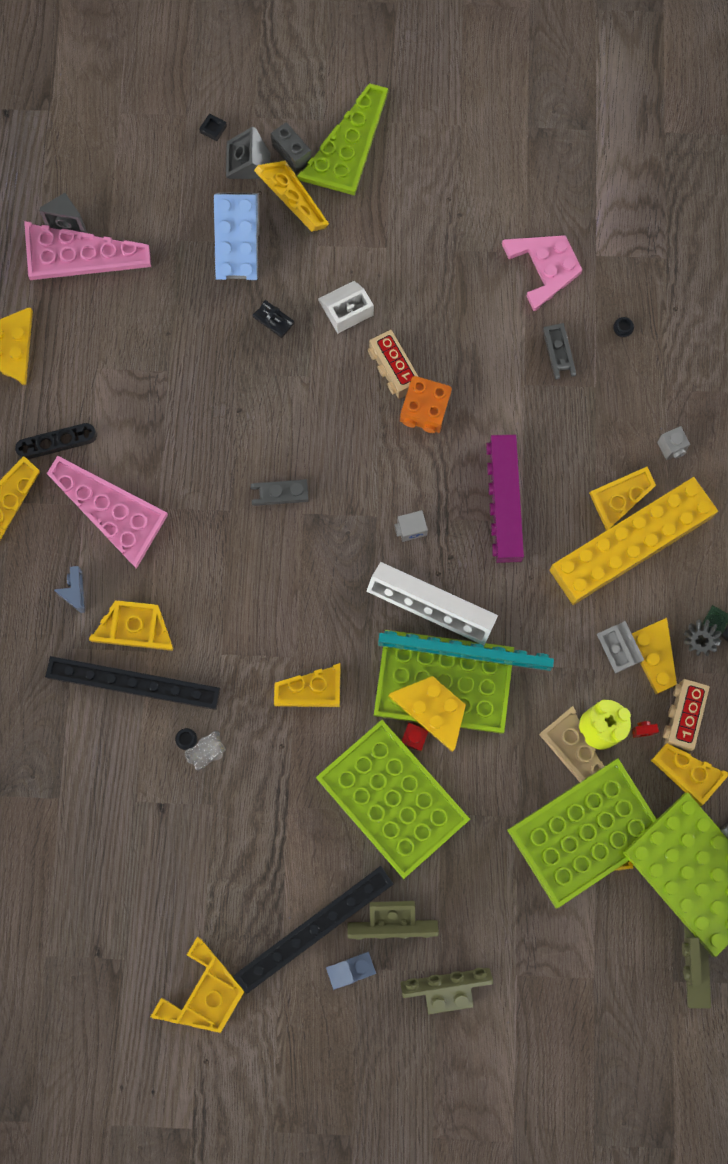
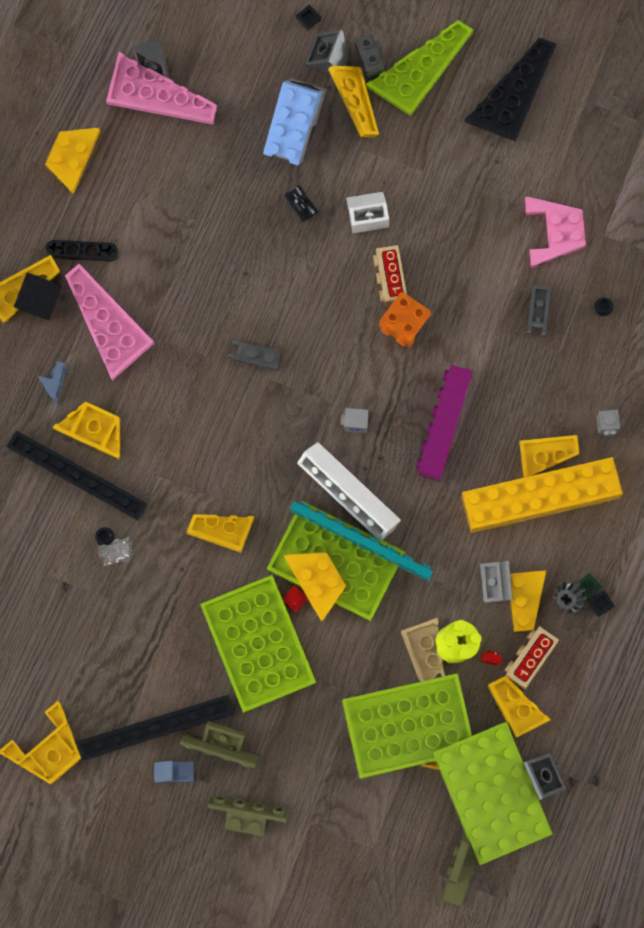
camera: 25 degrees right, 0 degrees up
(24, 504) = (37, 296): none -> black slope
(452, 146) = (511, 99): none -> black wing

